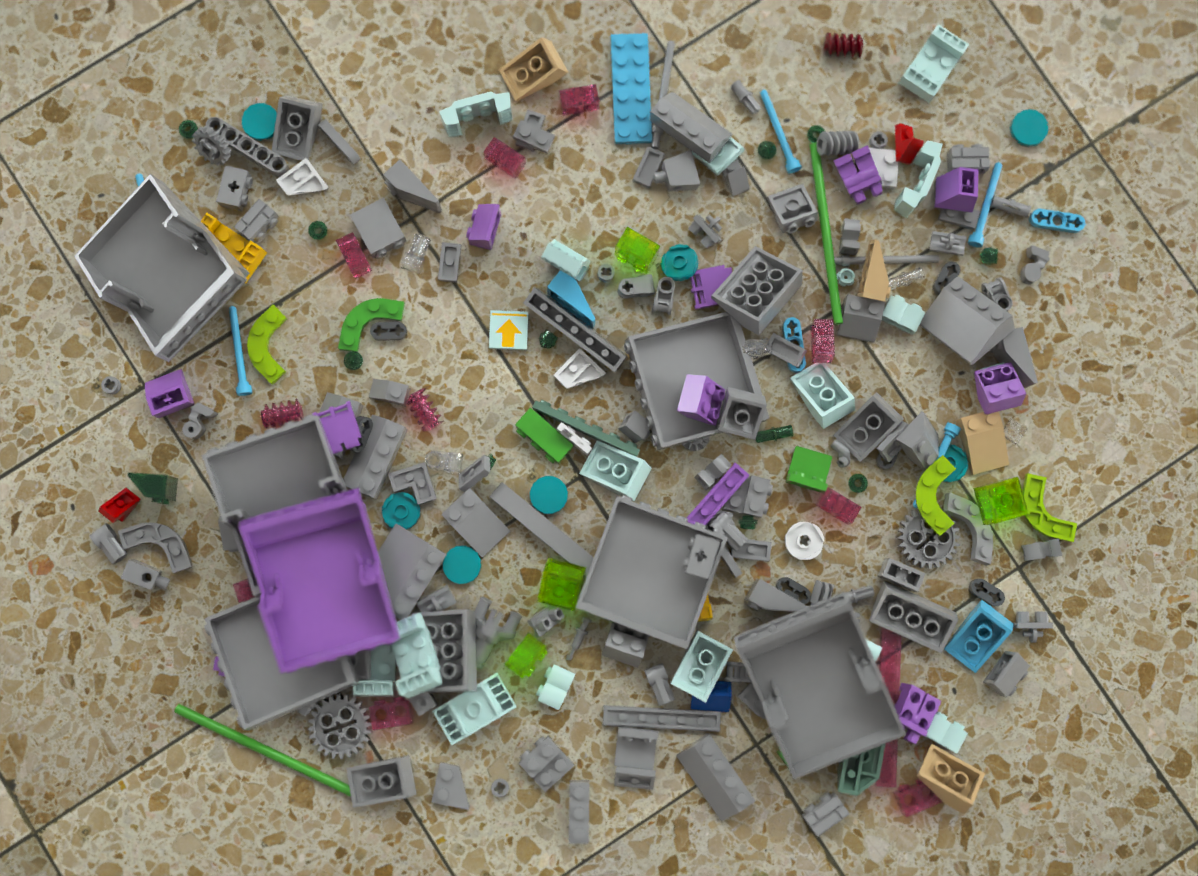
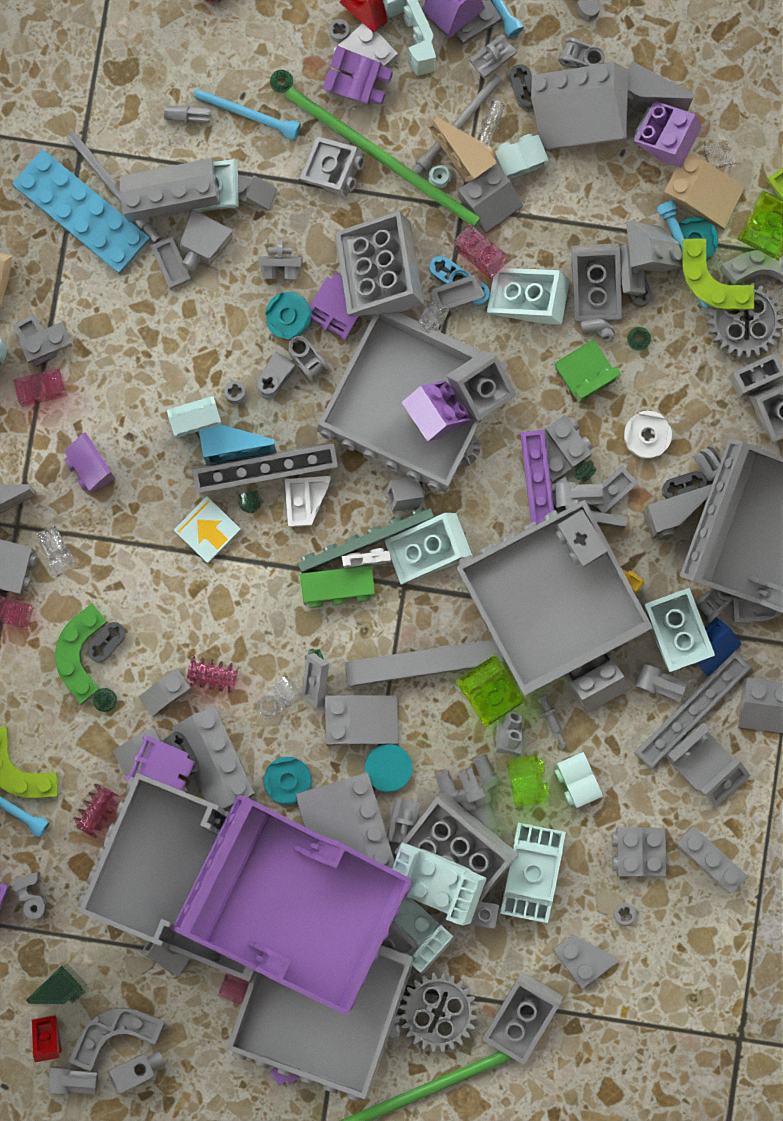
camera: 45 degrees left, 0 degrees up
(392, 718) = (474, 957): clear pink brick -> none
(416, 477) = (271, 737): light grey plate -> none
(449, 262) = (93, 527): light grey plate -> none
(548, 494) = (395, 630): teal tile -> none
(579, 99) = (48, 269): clear pink brick -> none
(636, 250) = (242, 344): clear neon green brick -> none
(713, 471) = (510, 460): light grey leg -> none
(766, 150) = (254, 139): clear green plate -> none
(774, 434) = (526, 372): clear green axle -> none
(837, 142) = (308, 70): light grey piece -> none
(838, 506) = (644, 375): clear pink brick -> none
(849, 237) = (404, 137): light grey leg -> none
(860, 594) = (741, 427): light grey axle -> none
(989, 256) = (538, 29): clear green plate -> none

